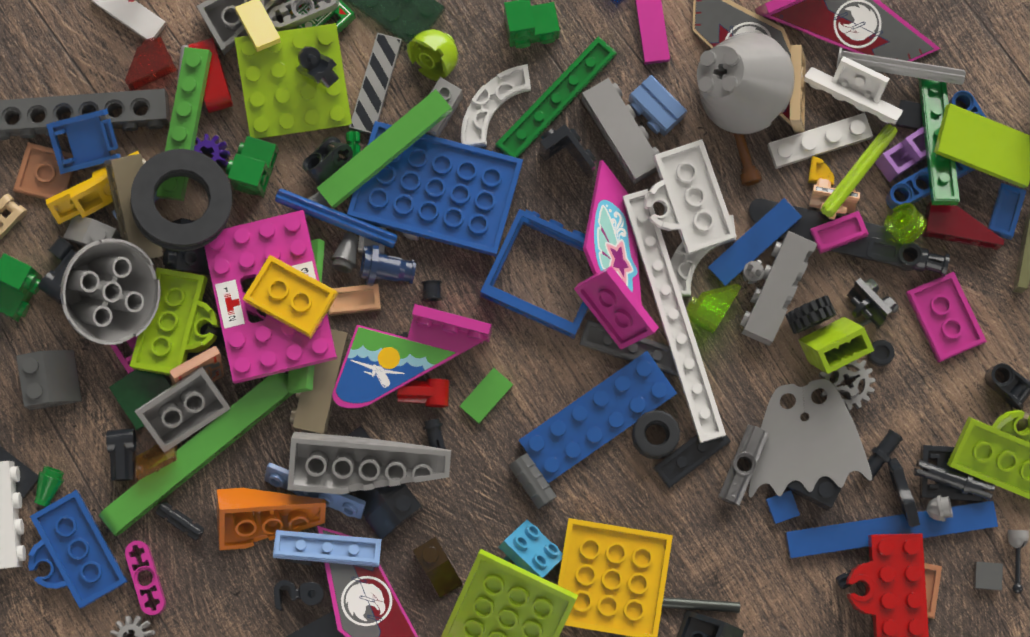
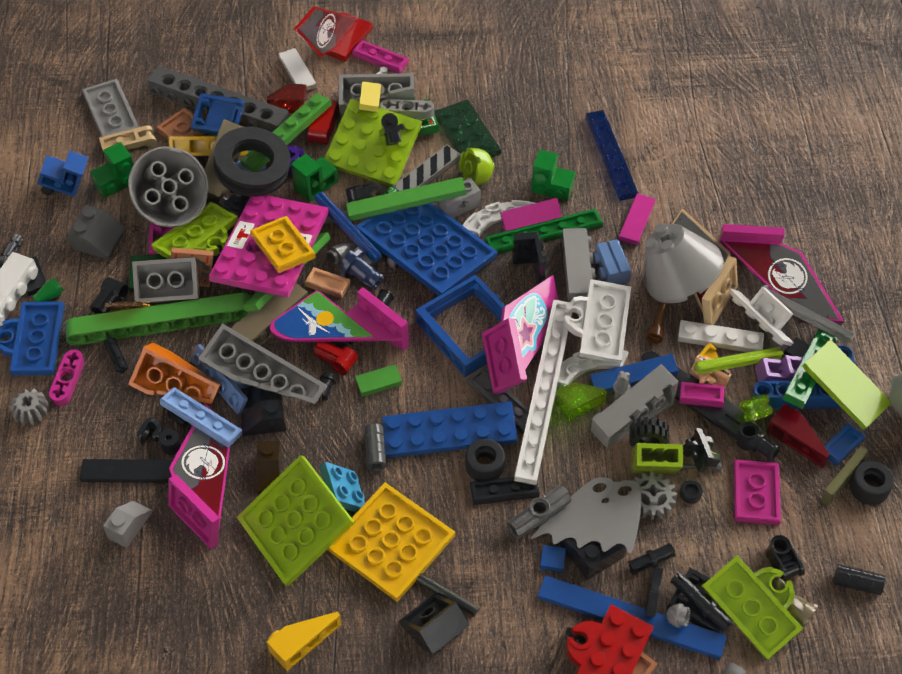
camera: 30 degrees right, 25 degrees down
(532, 87) = (530, 214): none -> dark pink tile

